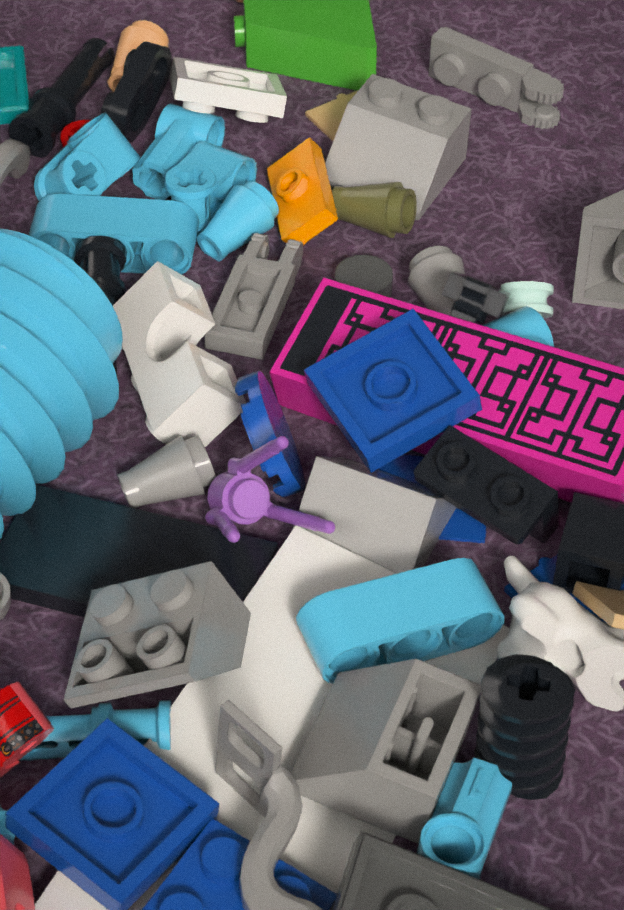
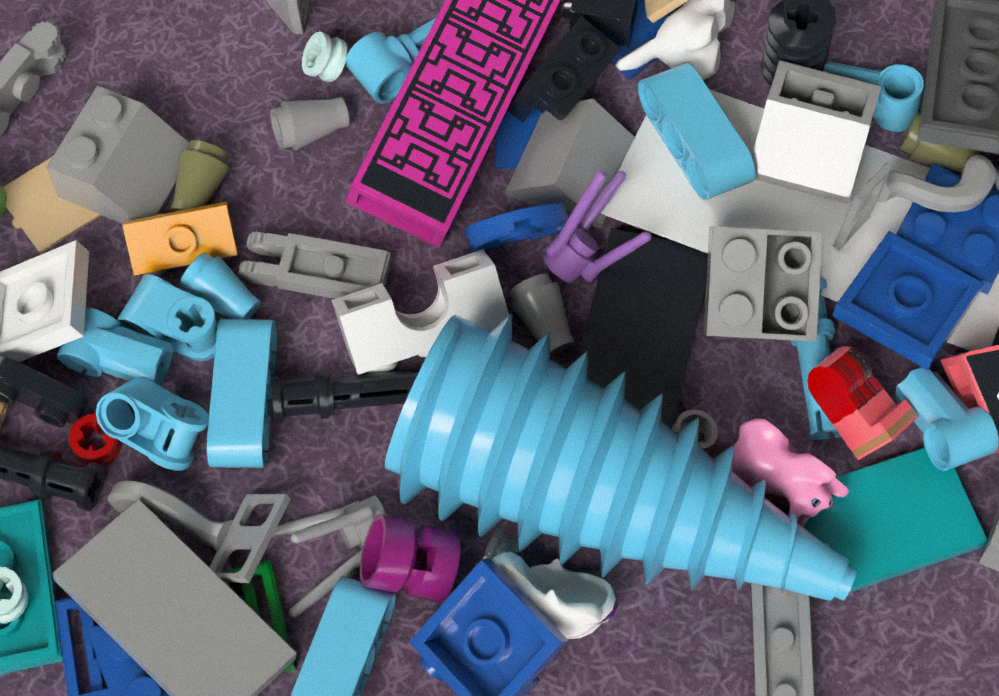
camera: 90 degrees left, 20 degrees up
(366, 273) = (289, 187): dark grey tile -> none
(392, 390) = (489, 125): blue plate -> none
(474, 298) = (353, 76): black plate -> none

